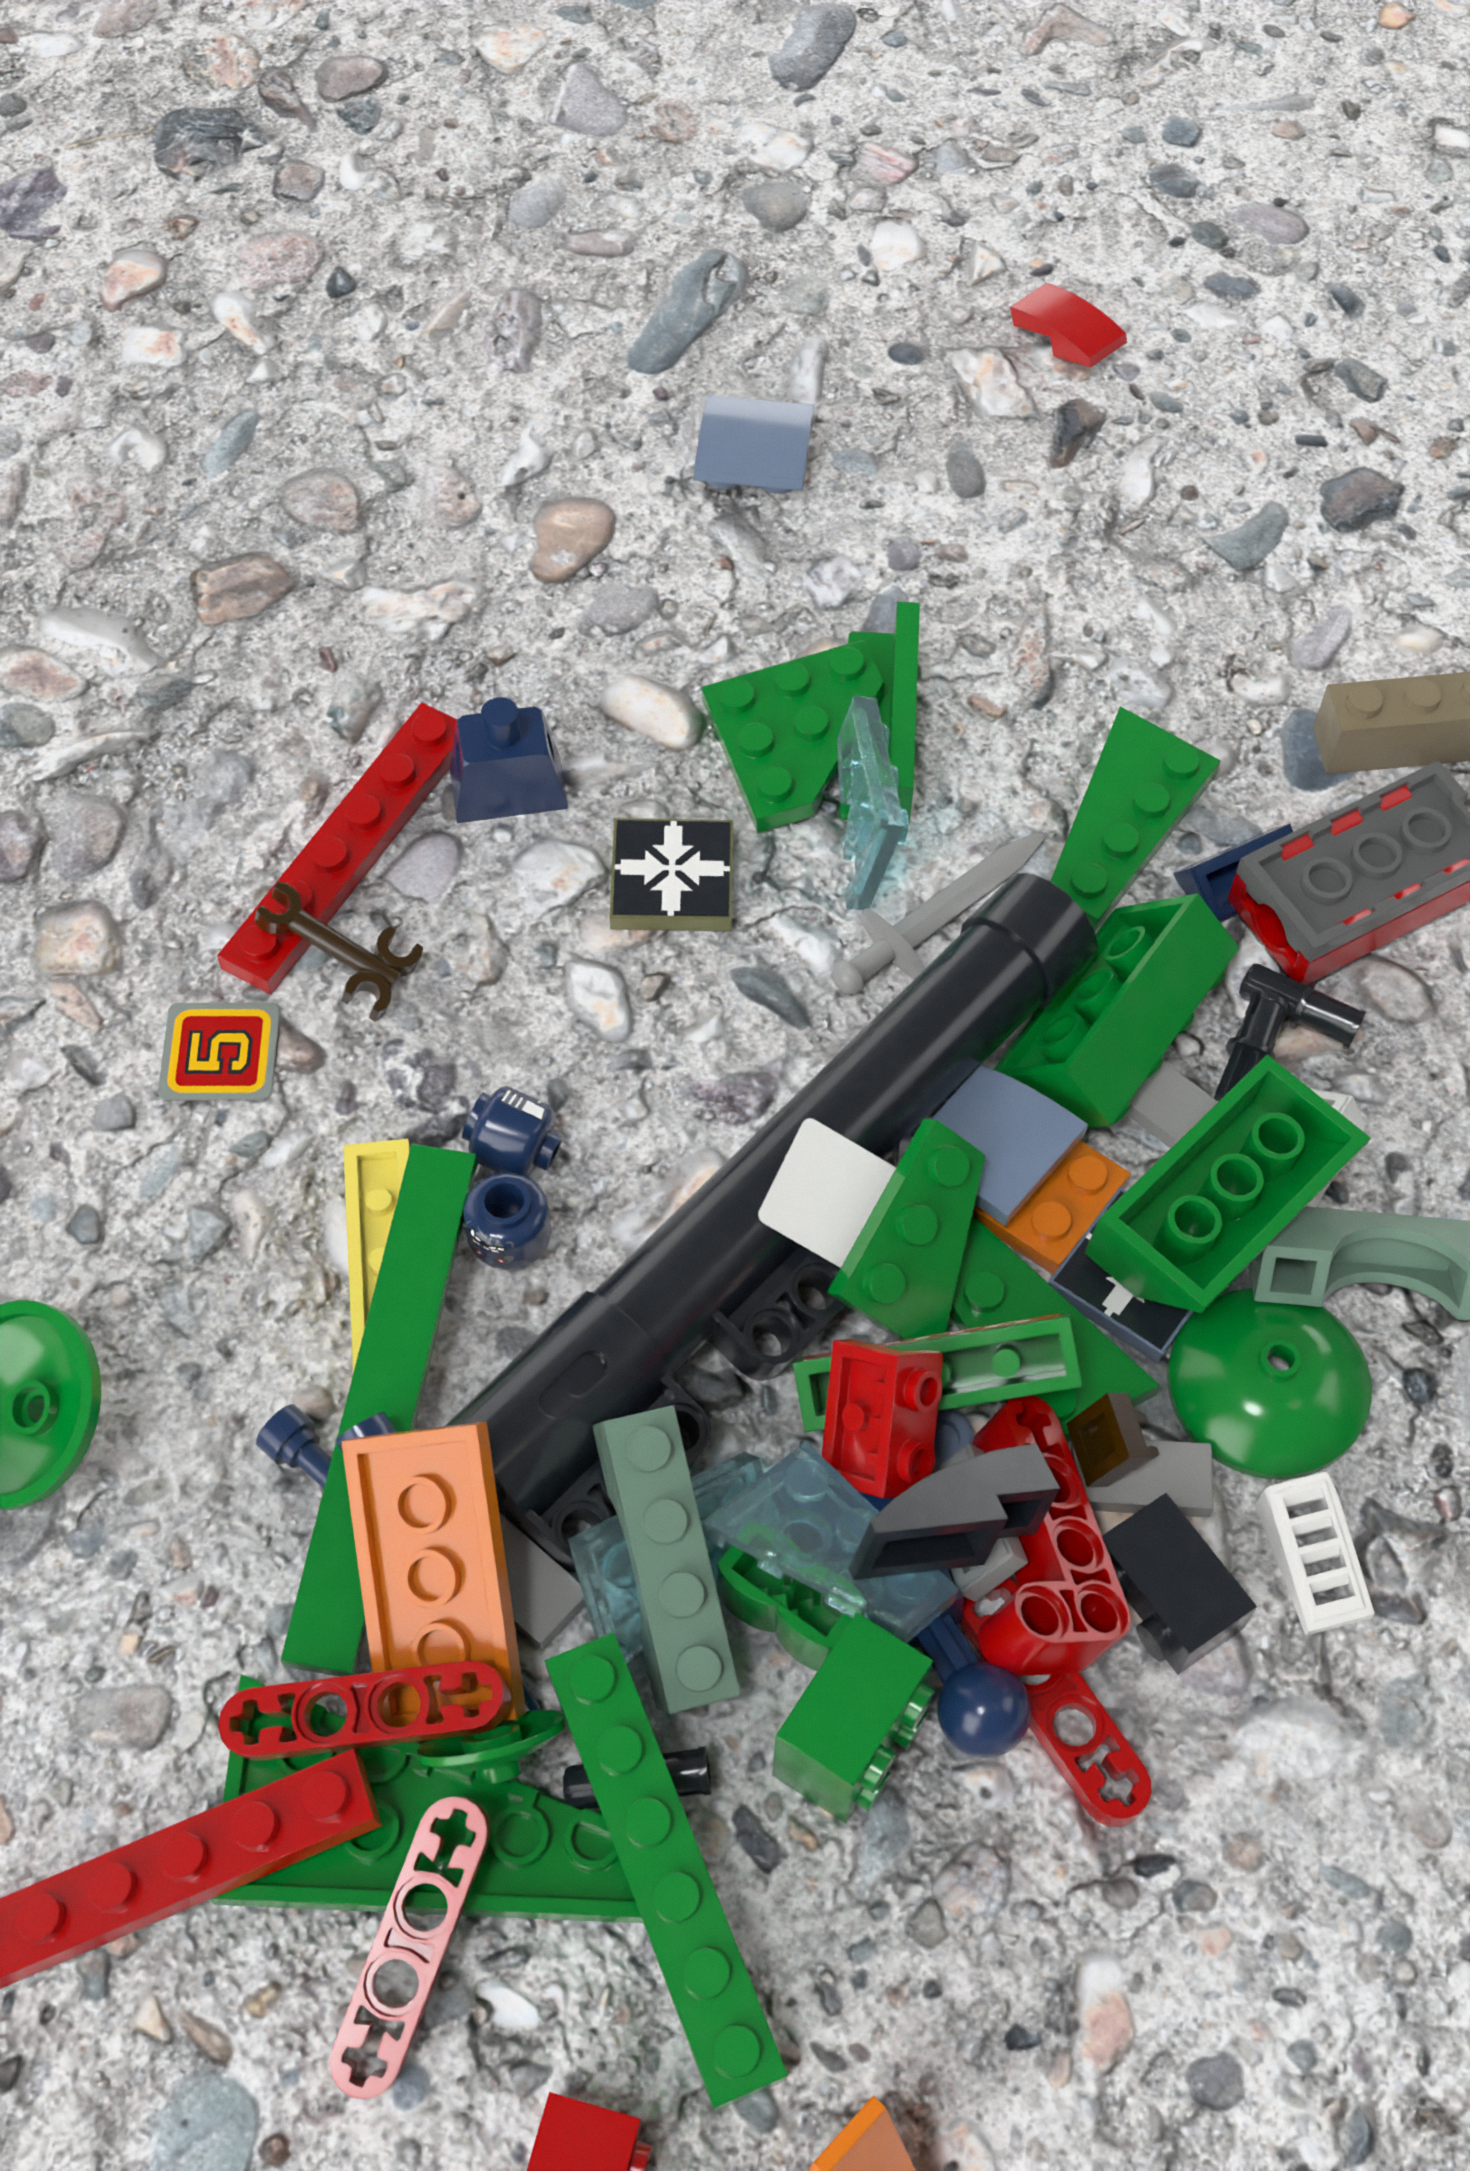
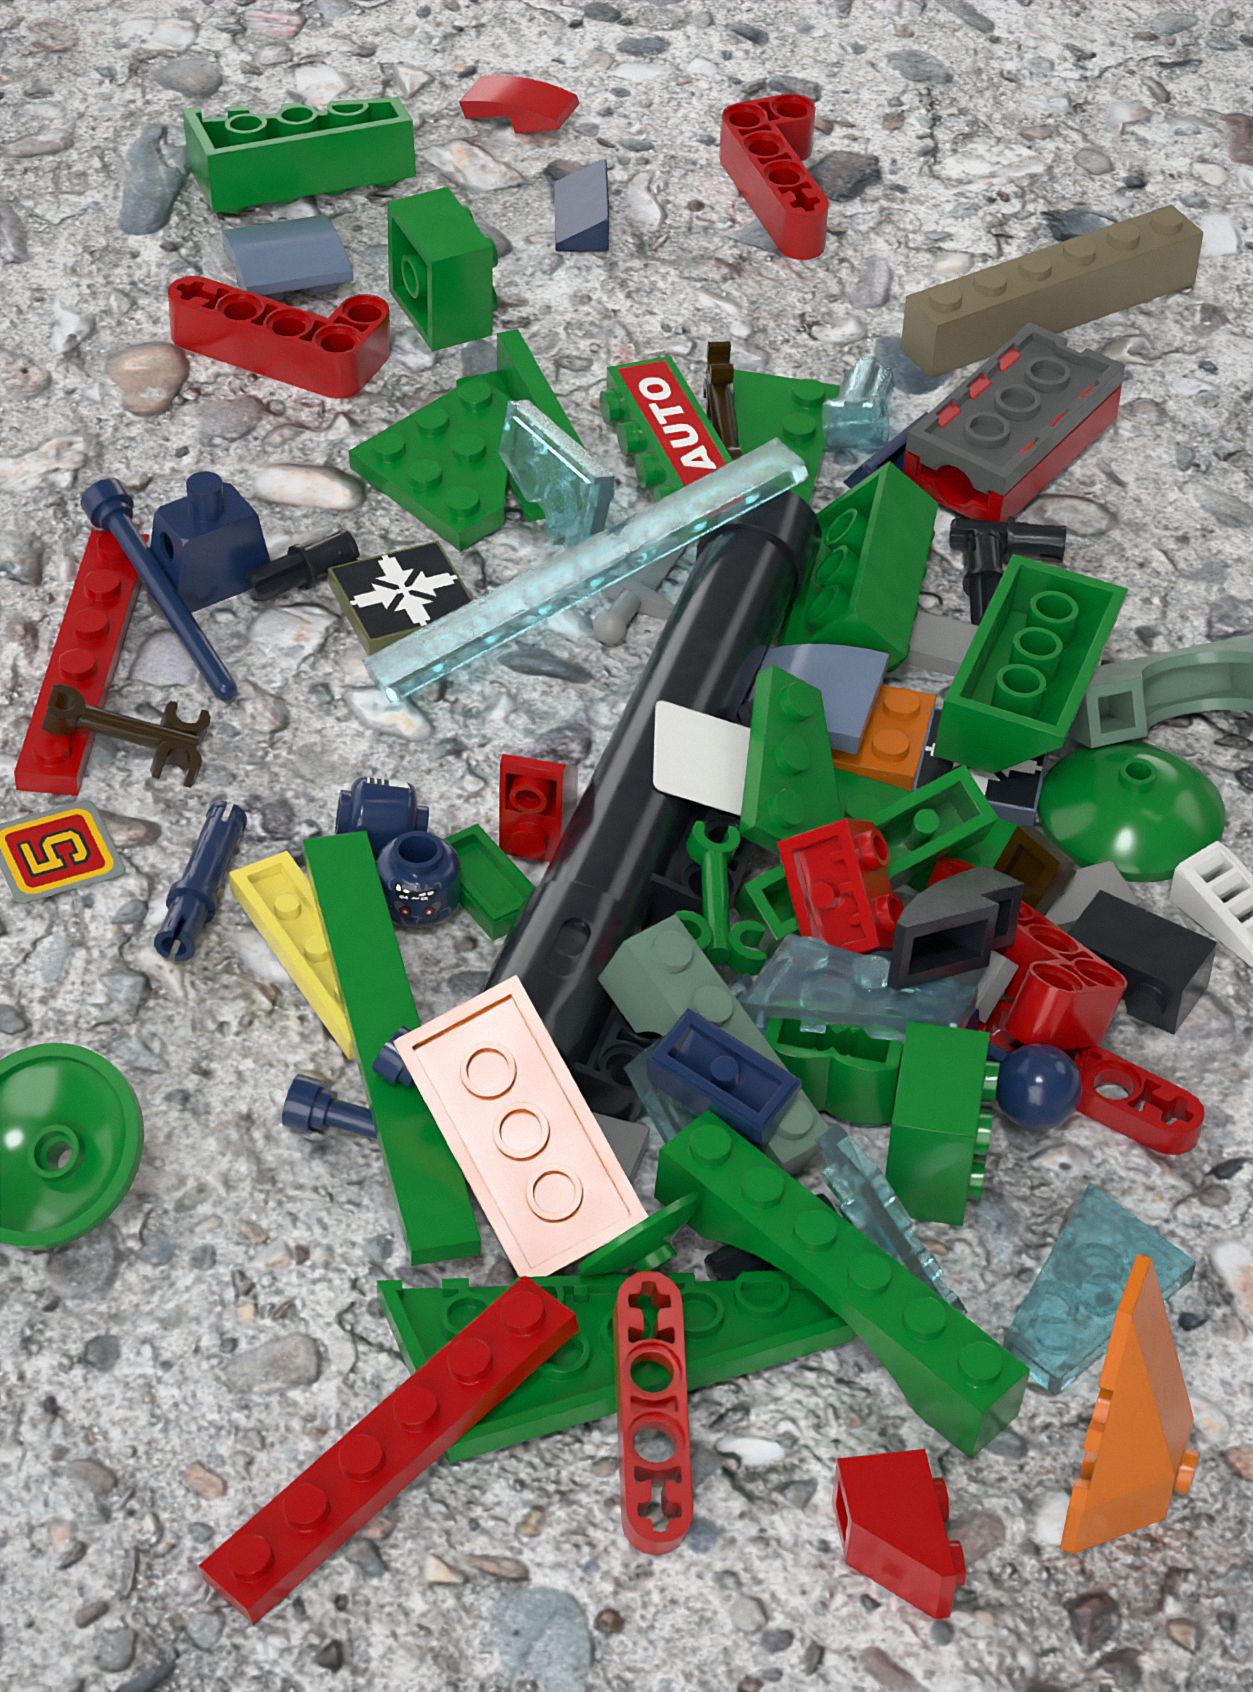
camera: 25 degrees left, 15 degrees down
(303, 1159) = (194, 897): none -> dark blue pin
(364, 1703) = (509, 1241): red beam -> none
(435, 691) = (110, 509): none -> dark blue piece
(583, 1229) = (489, 881): none -> green tile
(592, 807) = (301, 566): none -> black axle
(640, 1607) = (721, 1074): none -> dark blue slope
(660, 1168) = (534, 805): none -> red slope
(729, 568) = (282, 341): none -> red beam
(730, 1832) = (875, 1209): none -> clear light blue wing
(742, 1410) = (713, 929): none -> green bar
(818, 326) = (298, 151): none -> green wedge
(841, 916) = (584, 569): none -> clear light blue tile
(883, 507) = (441, 268): none -> green brick
(931, 1966) = (1078, 1291): none -> clear light blue wing
(1011, 782) = (660, 425): none -> brick
(1069, 469) = (582, 209): none -> slope
(1090, 727) = (718, 394): none -> dark brown bar
(1222, 803) = (861, 408): none -> clear light blue piece
(1279, 443) = (763, 156): none -> red beam

